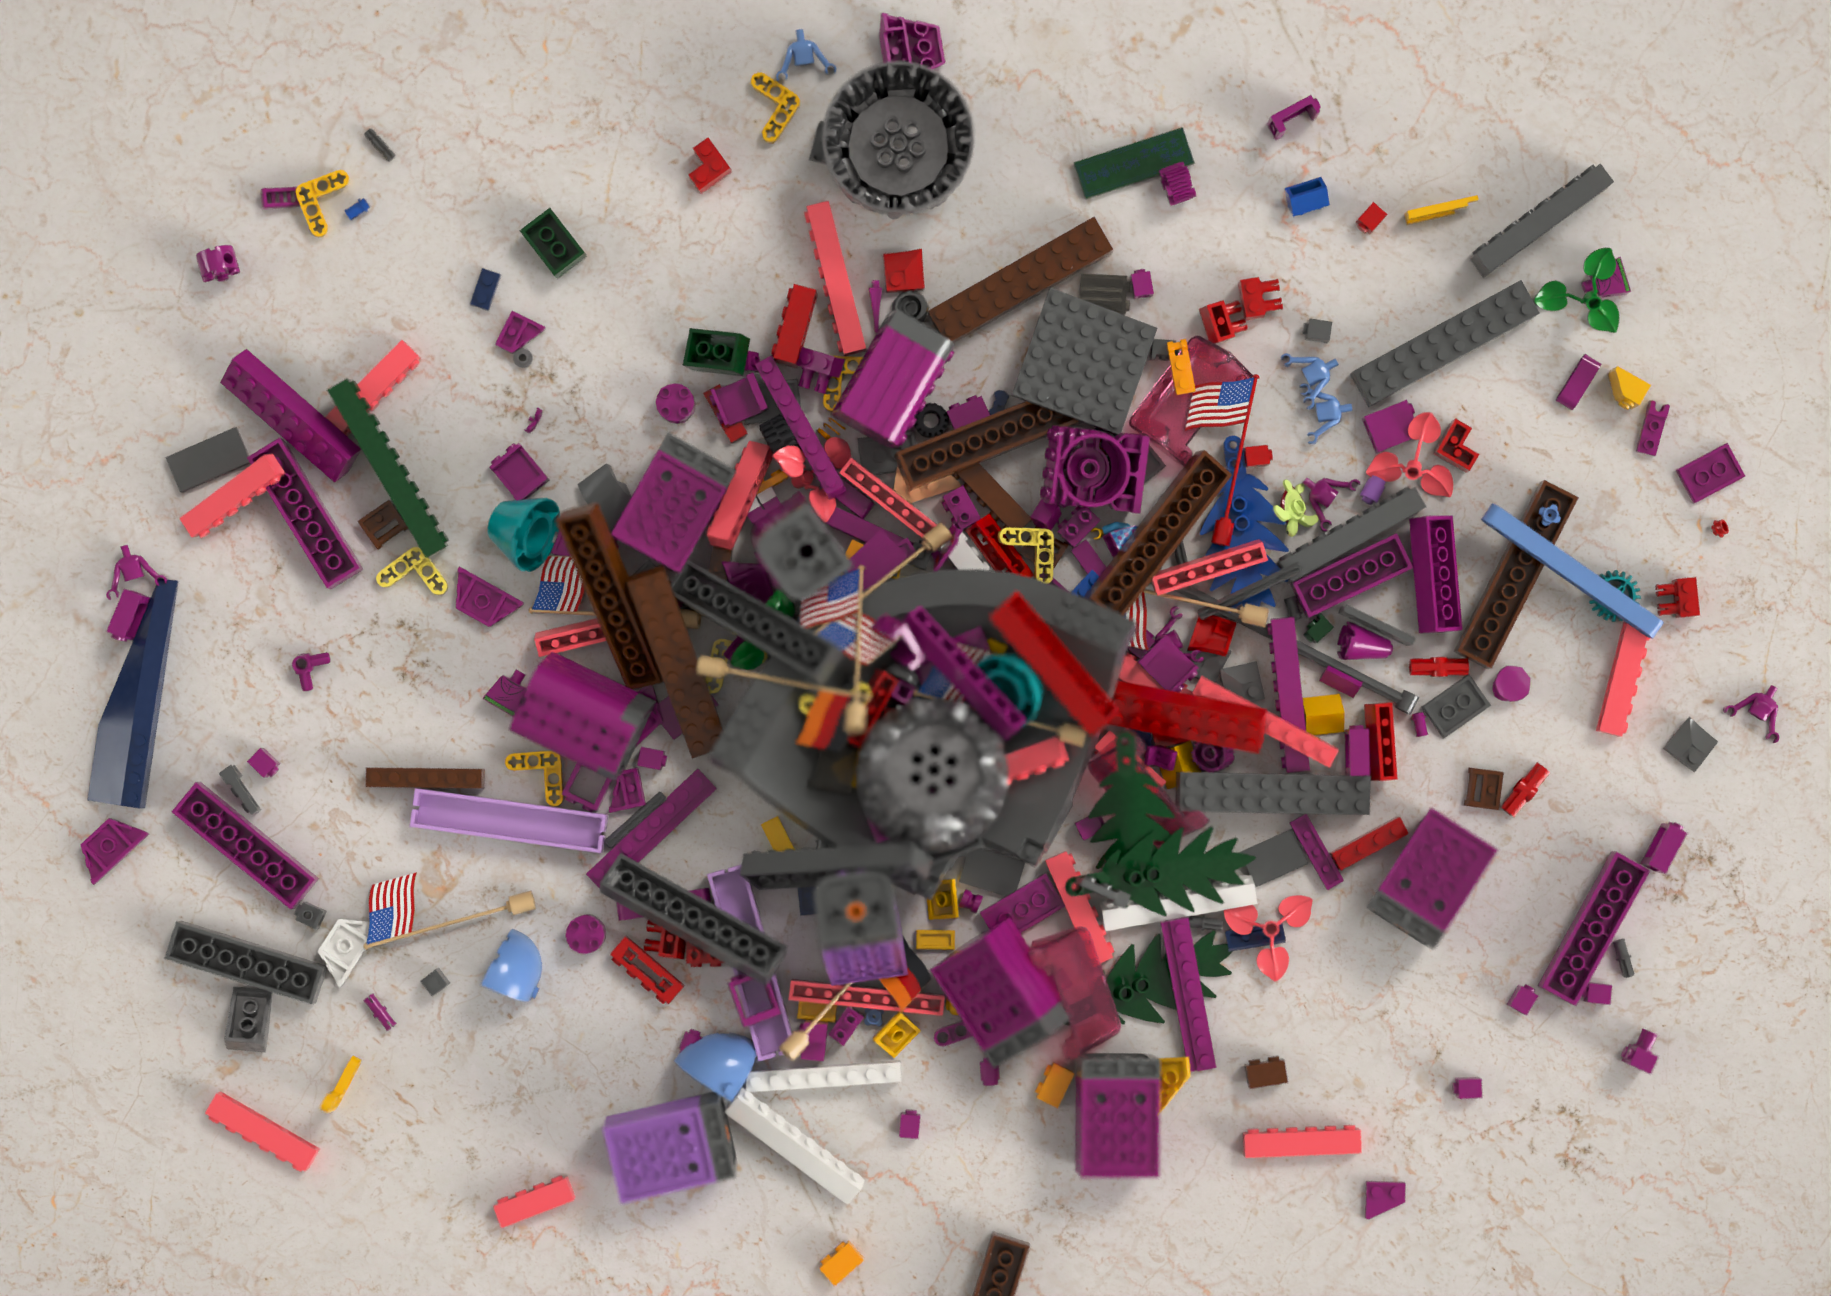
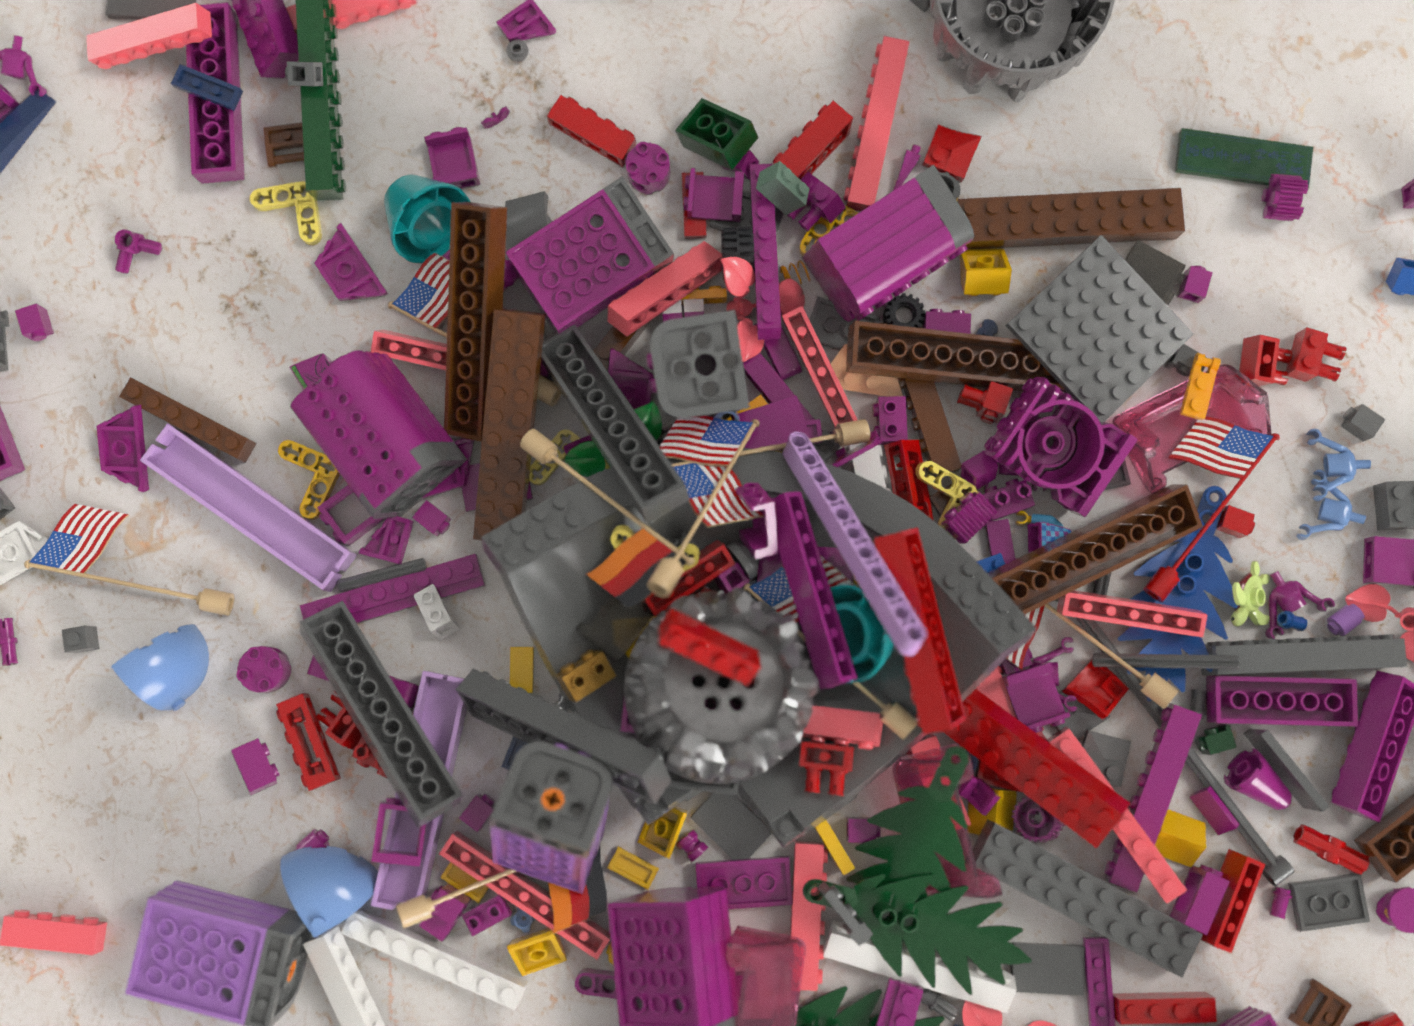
camera: 25 degrees right, 5 degrees down
(303, 514) = (207, 87): none -> dark blue plate
(379, 477) = (313, 73): none -> dark grey brick
(388, 823) = (122, 447): none -> magenta wing
(616, 394) = (591, 130): none -> red brick
(618, 1007) = (254, 766): none -> magenta brick
(691, 827) = (435, 613): none -> white bracket
(790, 374) = (782, 188): none -> sand green brick
(800, 956) = (478, 811): none -> magenta brick
(831, 815) = (585, 675): none -> pearl gold brick
(911, 751) = (709, 647): none -> red brick
(974, 624) = (854, 545): none -> lavender beam
(976, 355) = (985, 272): none -> yellow slope
(1029, 458) = (989, 404): none -> red brick
(1040, 784) = (820, 756): none -> red brick
(1054, 555) = (968, 517): none -> magenta brick
(1074, 848) = (834, 847): none -> yellow piece
(1329, 512) = (1289, 620): none -> blue pin

